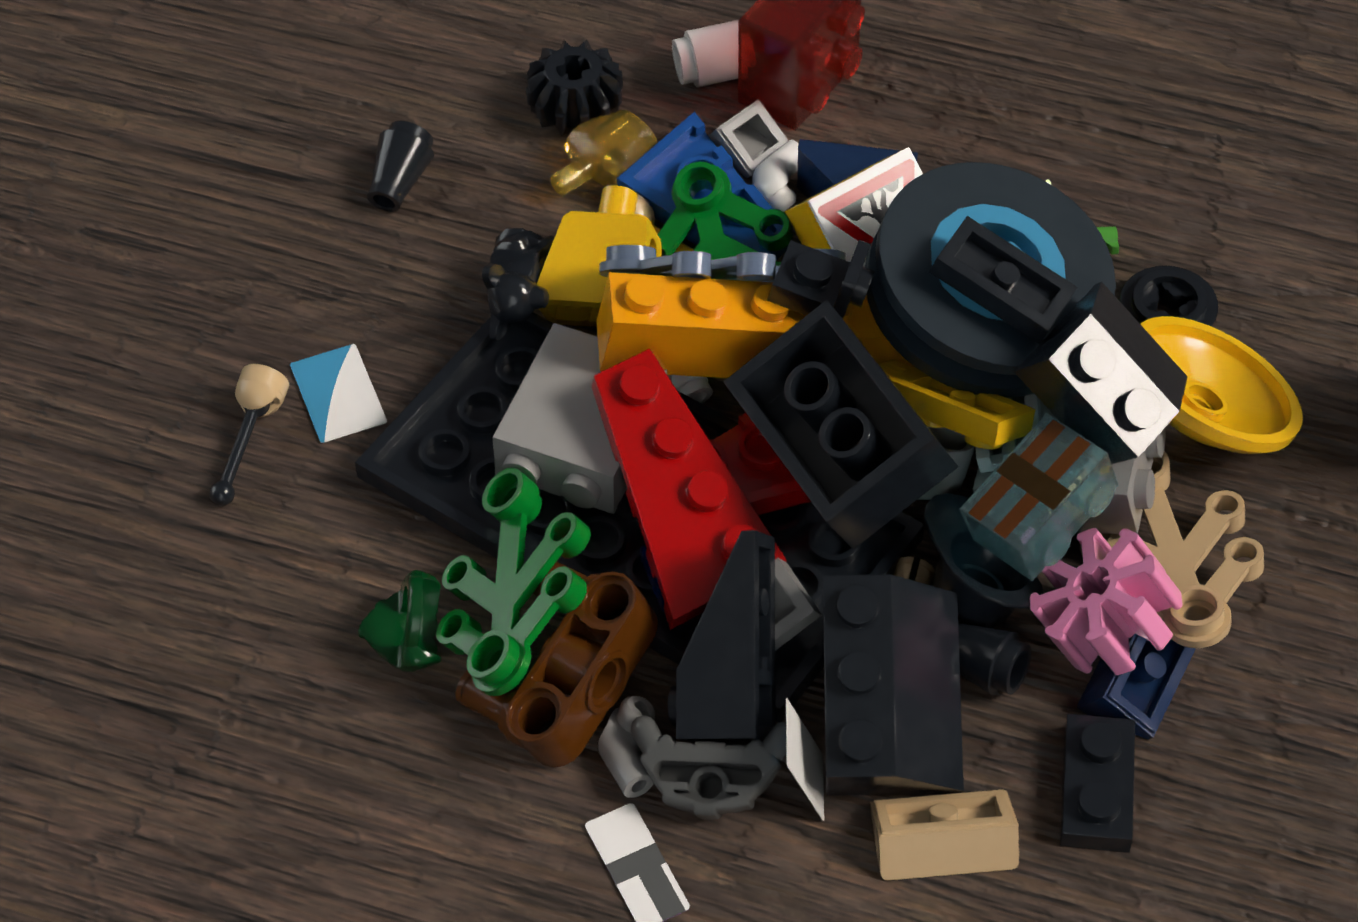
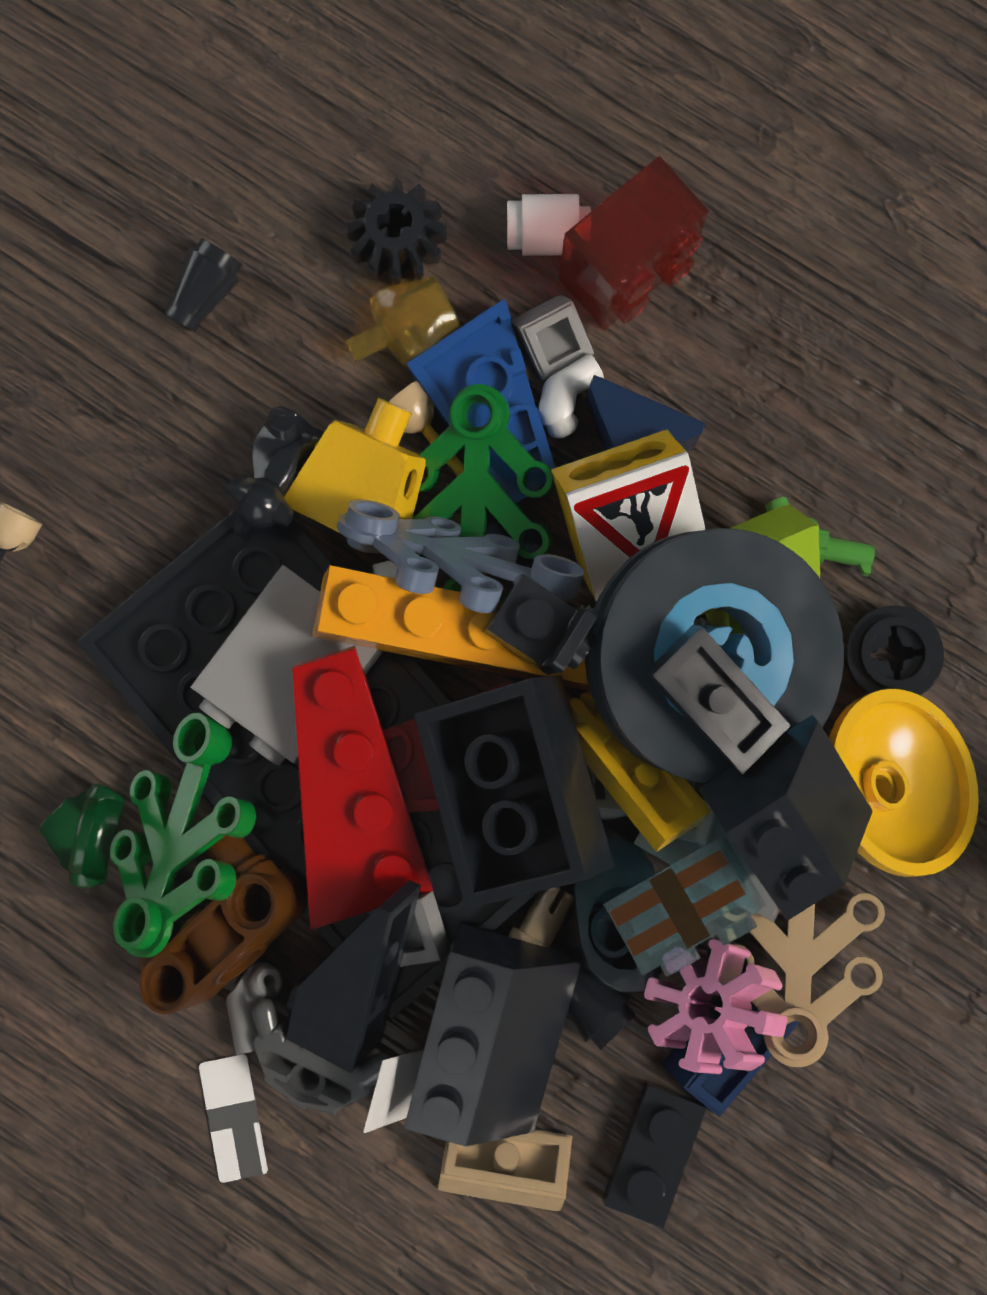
camera: 15 degrees right, 30 degrees up
(338, 393) = (90, 535): sticker -> none

